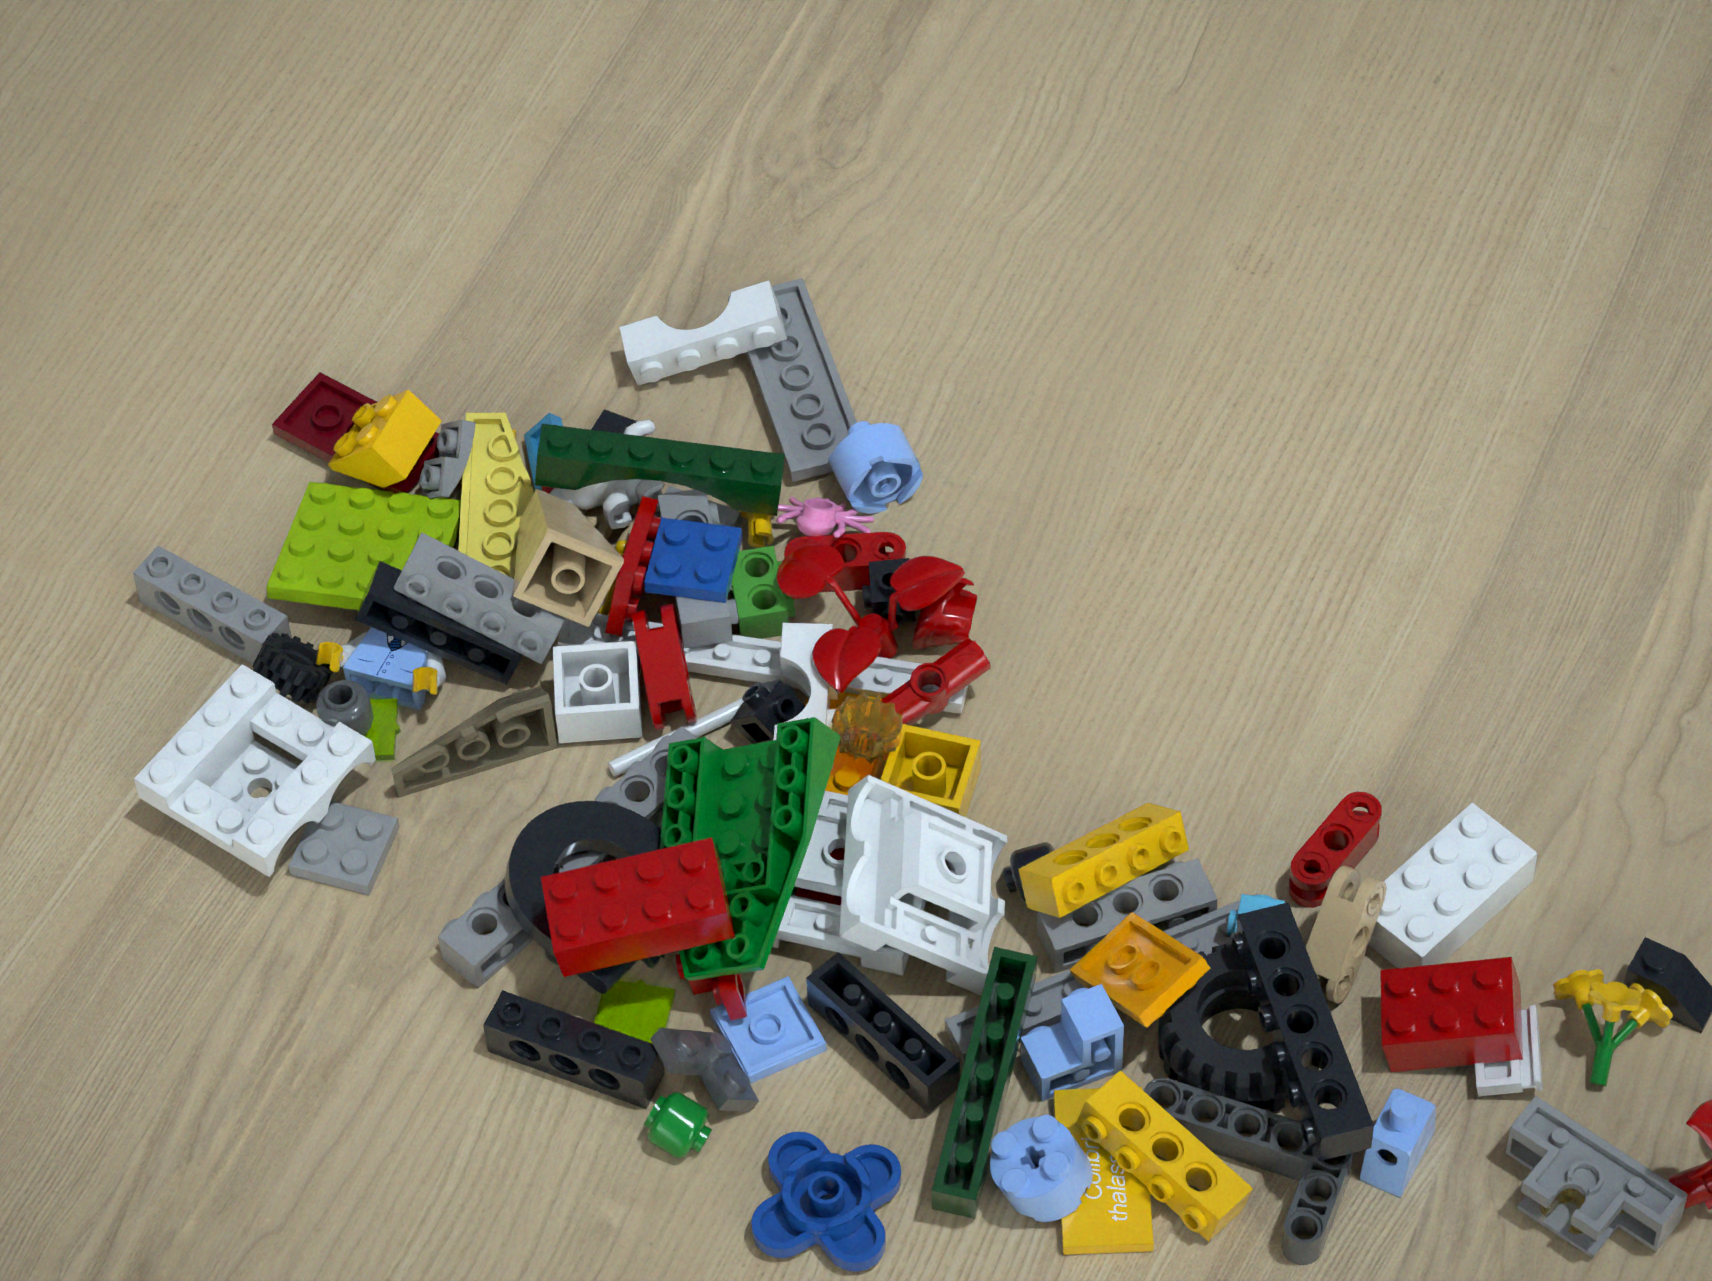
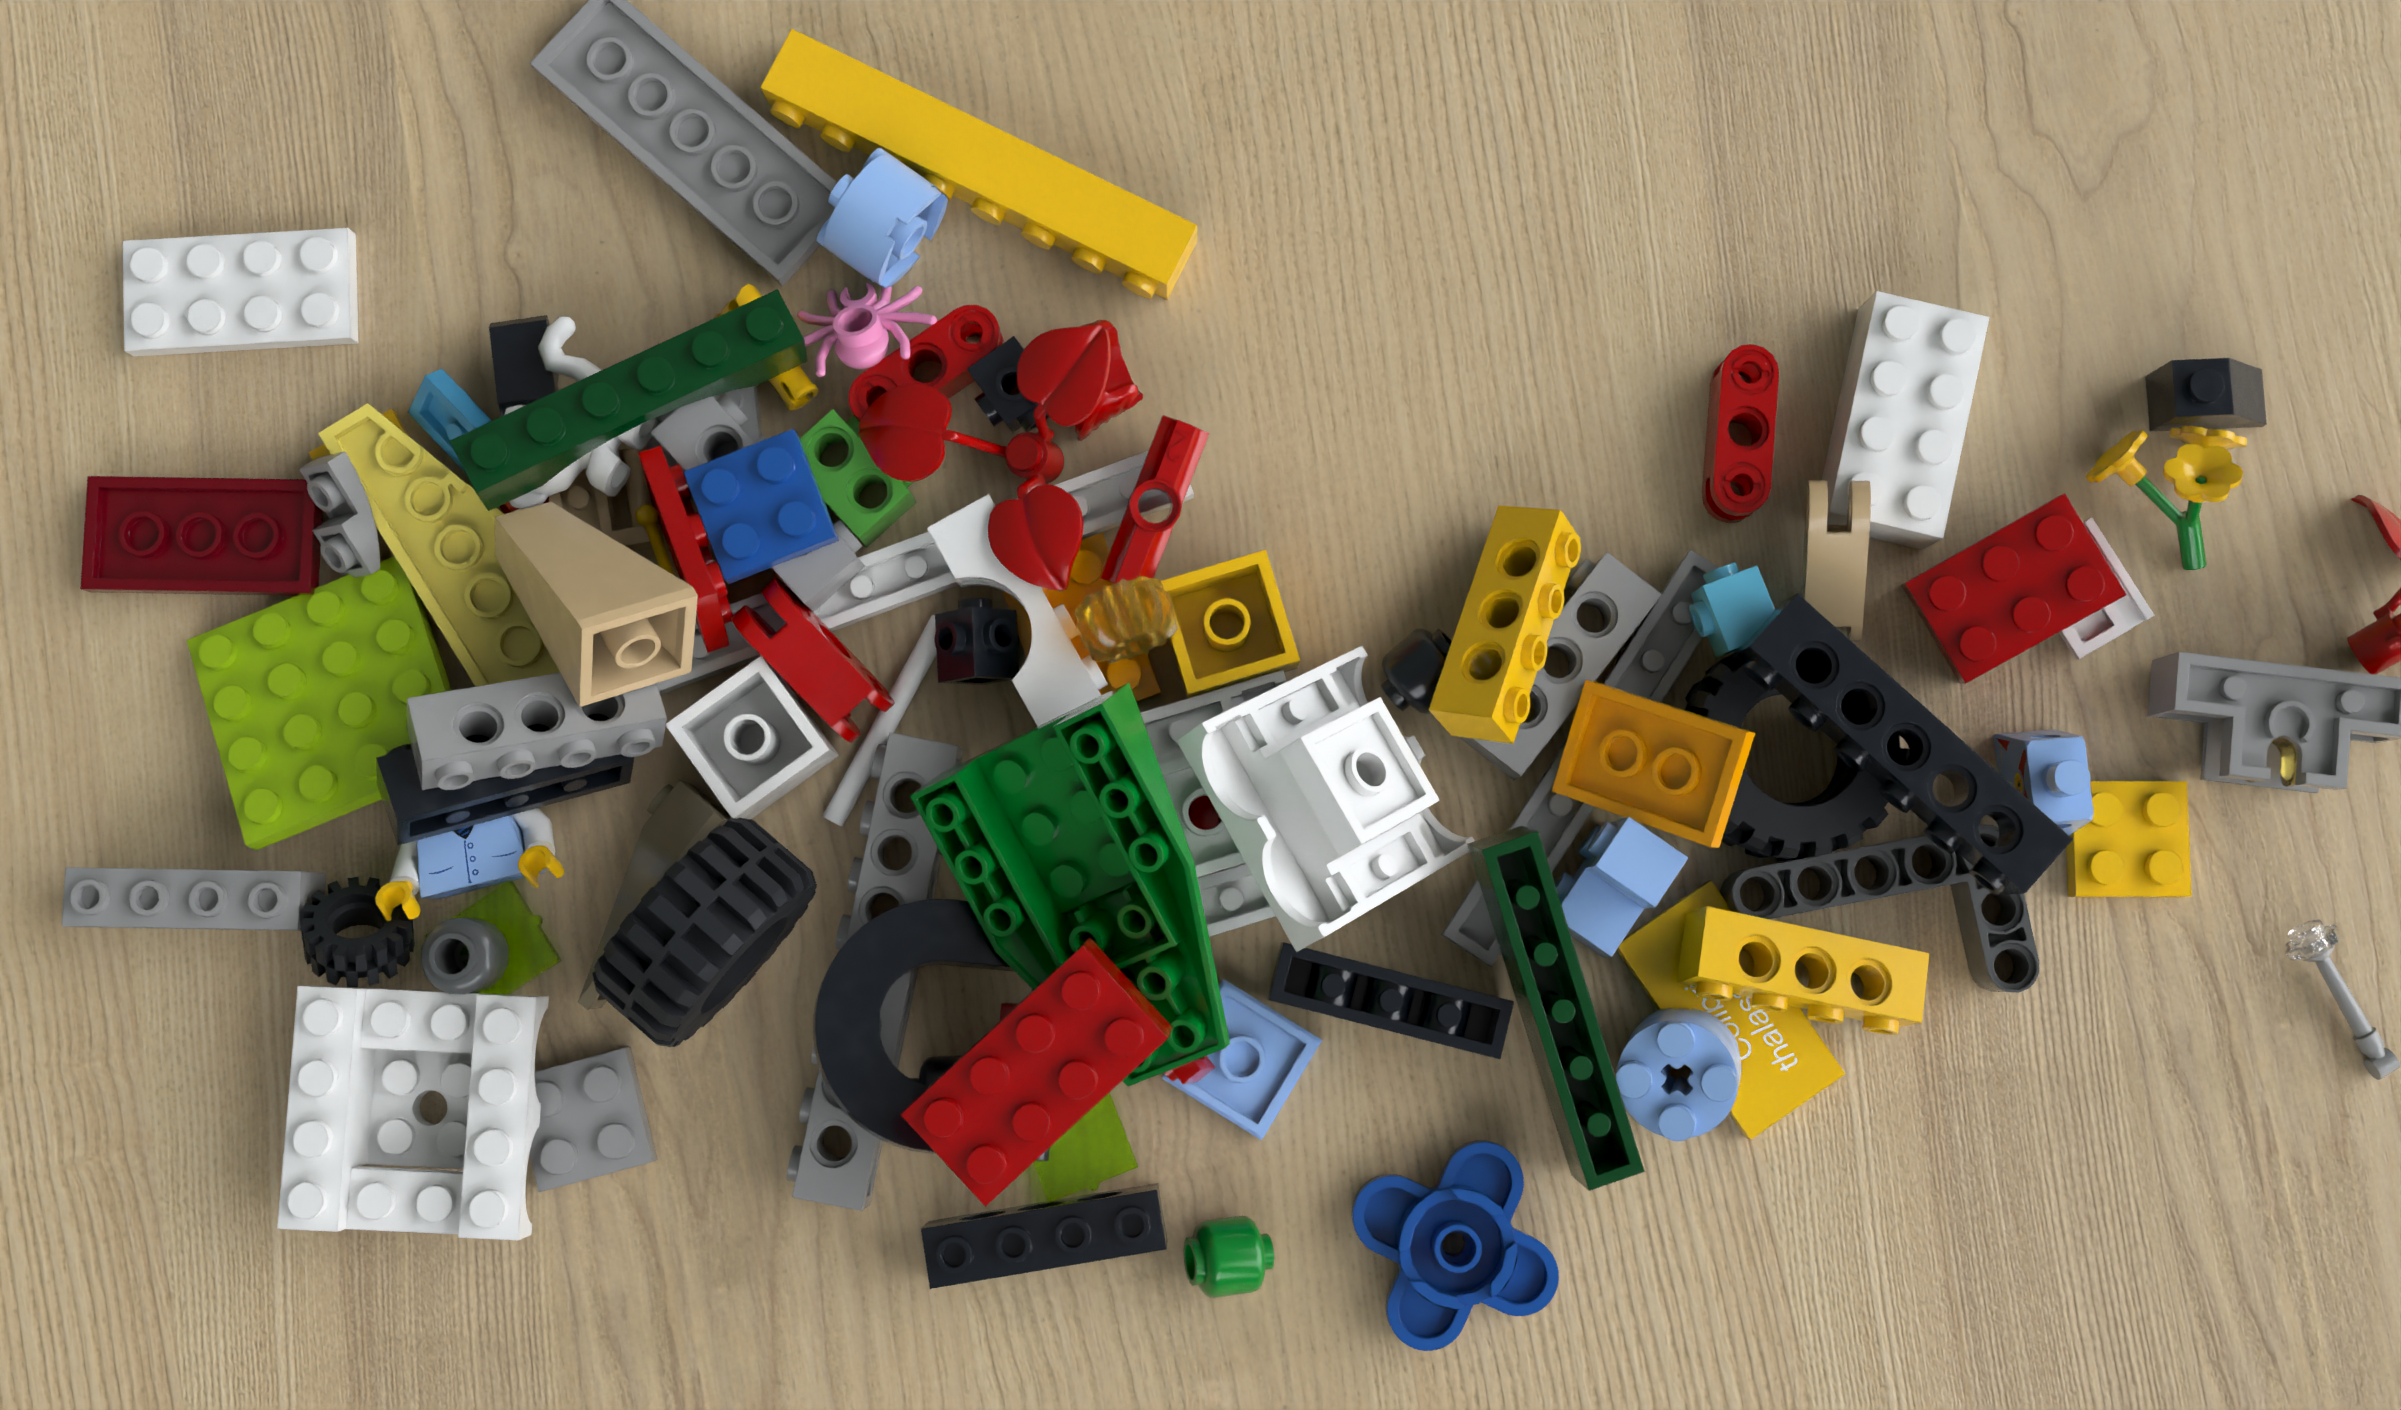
camera: 35 degrees left, 30 degrees up
(385, 439) = (246, 541): yellow slope -> none
(475, 331) = (240, 292): none -> white plate
(496, 753) = (703, 931): none -> black tyre
(711, 1059) = (1214, 1151): flat silver plate -> none
(746, 324) = (588, 98): white arch -> none
(960, 479) = (981, 166): none -> yellow brick
(1442, 1216) = (2133, 843): none -> yellow plate

